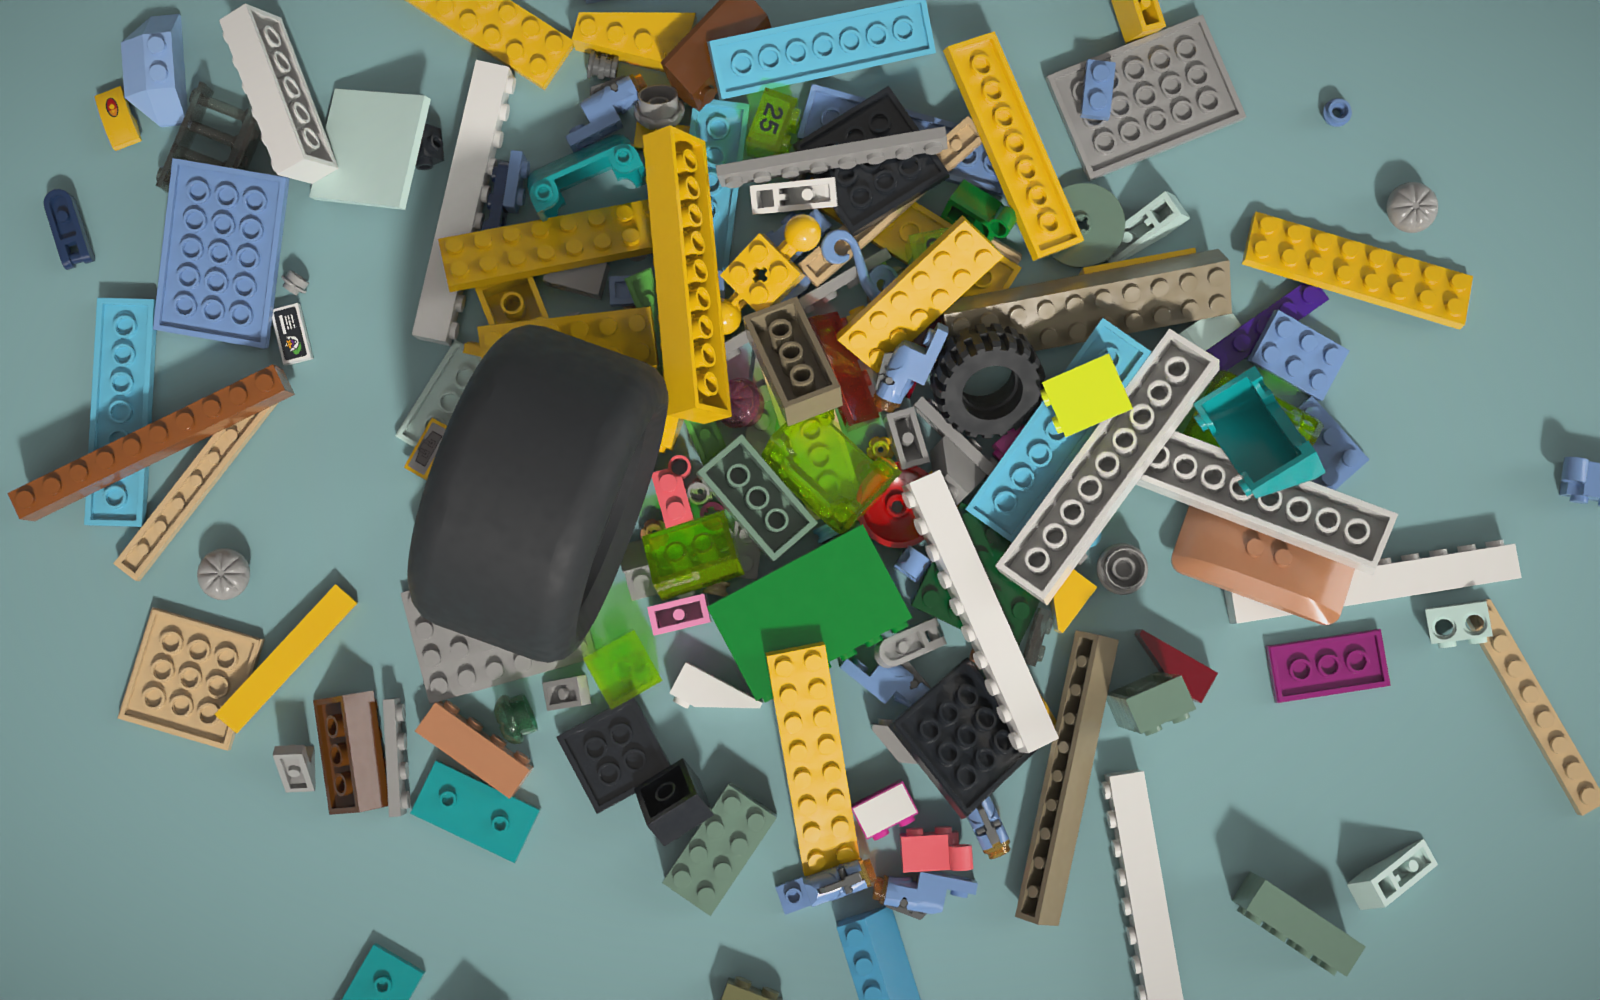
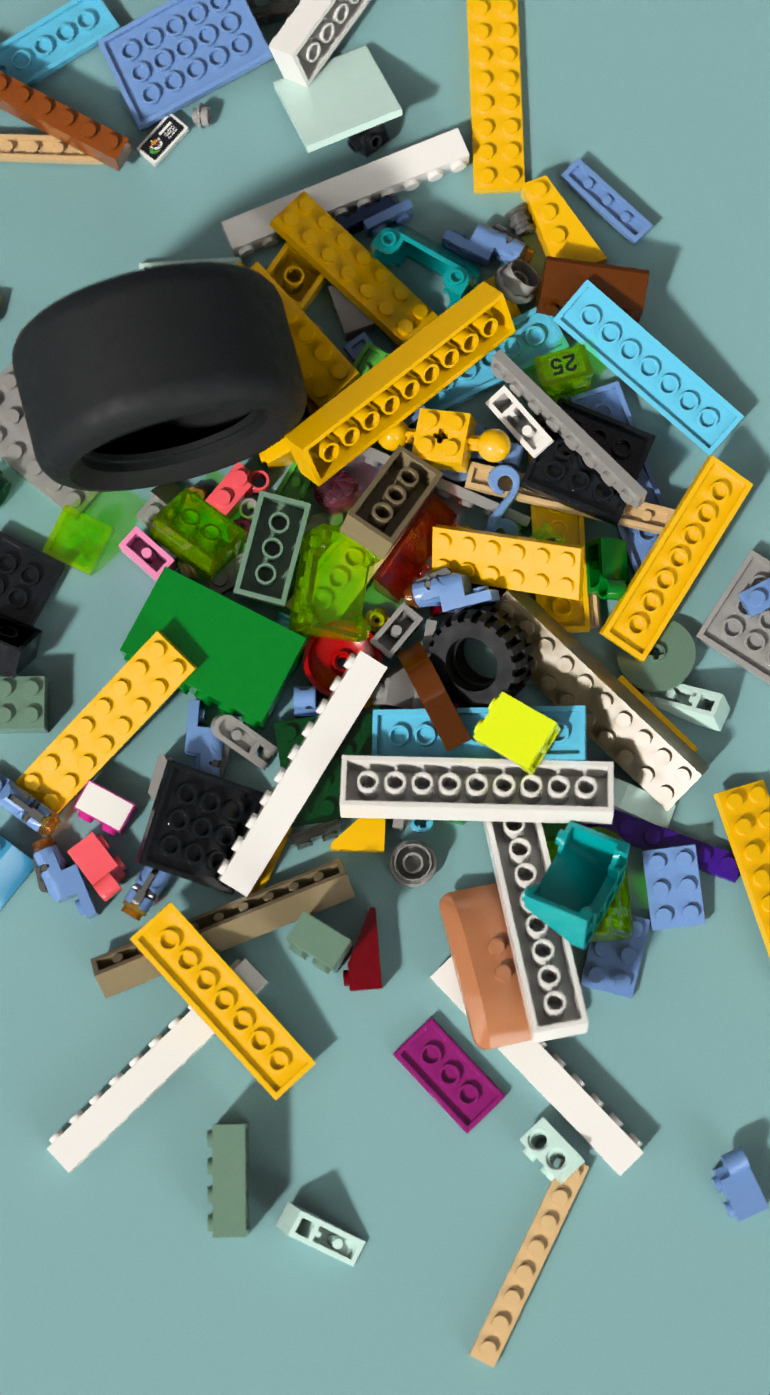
camera: 60 degrees right, 5 degrees down
(566, 693) = (34, 516): light grey slope -> none
(704, 690) = (103, 609): white slope -> none
(994, 446) = (433, 696): none -> reddish brown piece
(1136, 824) = (222, 1000): none -> yellow plate

